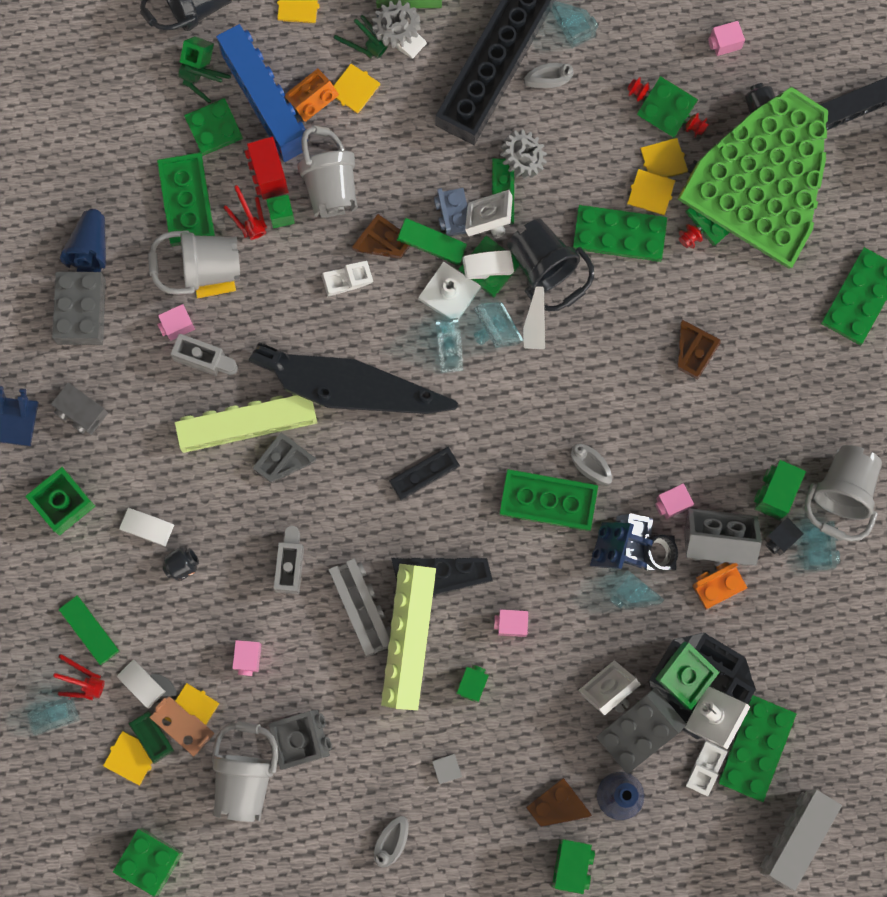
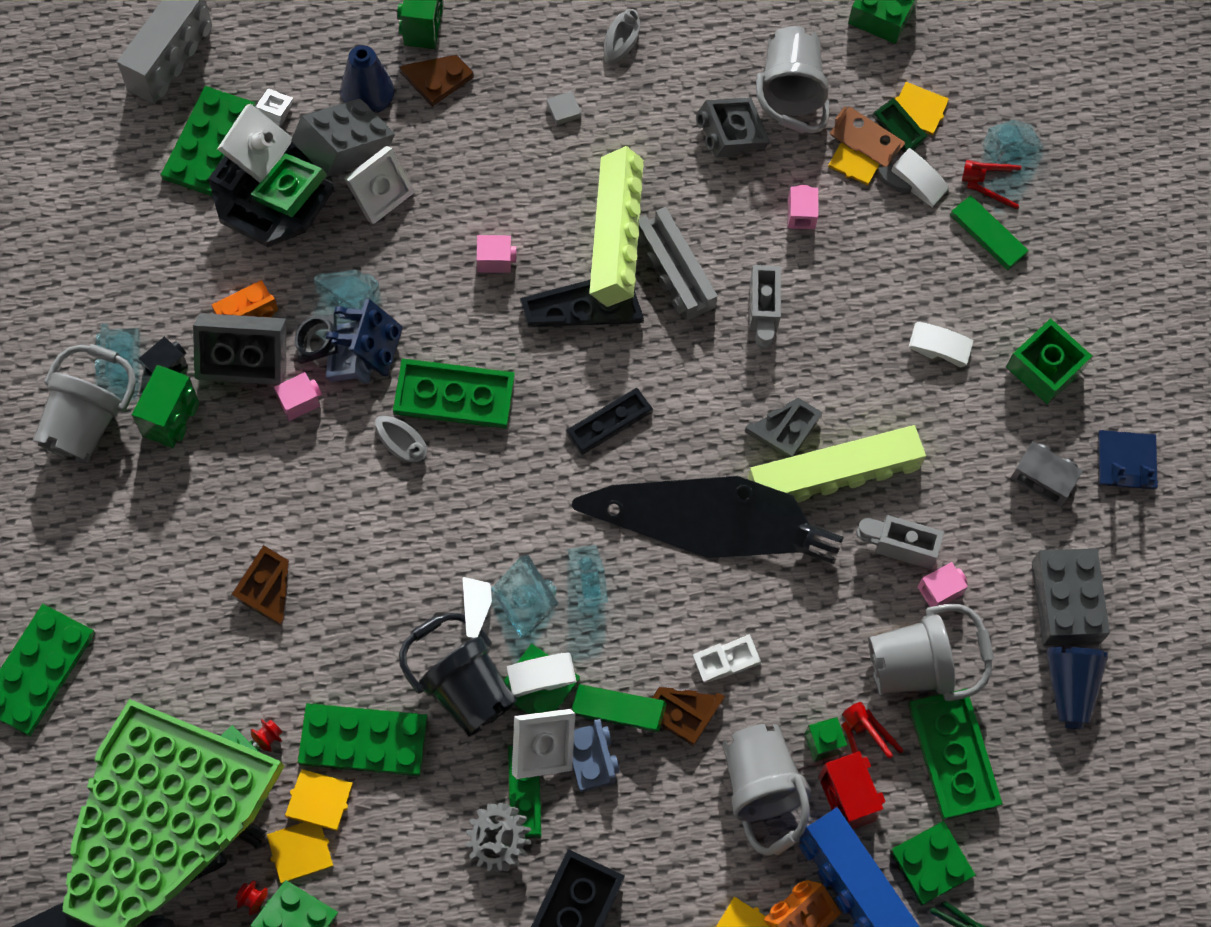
camera: 175 degrees right, 10 degrees down
(180, 563) = (894, 302): black head -> none
(449, 292) = (593, 646): white tile -> none
(473, 683) = (538, 188): green brick -> none

